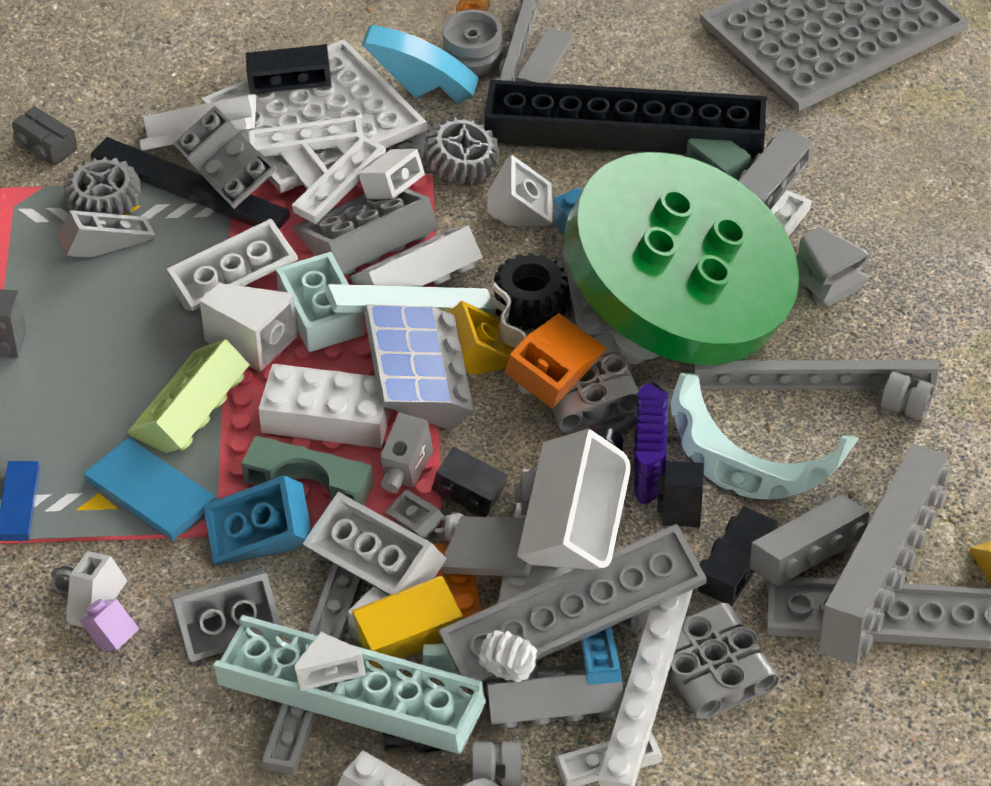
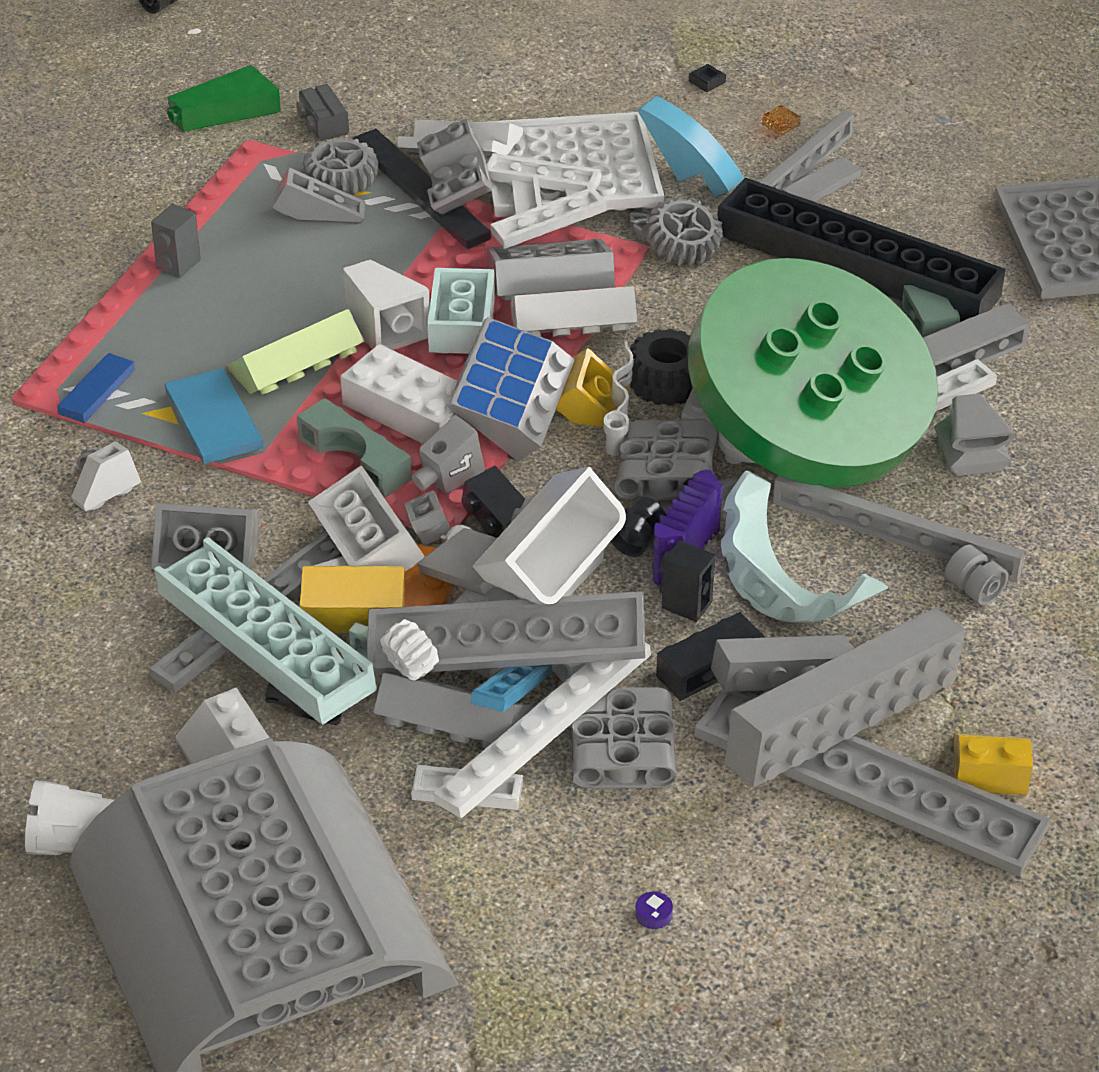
camera: 25 degrees right, 5 degrees down
(108, 624) = (96, 507): lavender brick -> none
(231, 262) = (407, 252): white slope -> none
(258, 521) = (284, 470): dark azure slope -> none
(288, 69) = (568, 117): black brick -> none
(328, 662) = (242, 597): white slope -> none
(354, 297) = (477, 308): light aqua tile -> none
(391, 174) = (599, 227): white brick -> none
(474, 40) = (756, 144): light grey wheel -> none
(507, 754) = (356, 748): light grey wheel -> none
(520, 196) = (703, 278): white slope -> none
(553, 359) = (635, 420): orange slope -> none

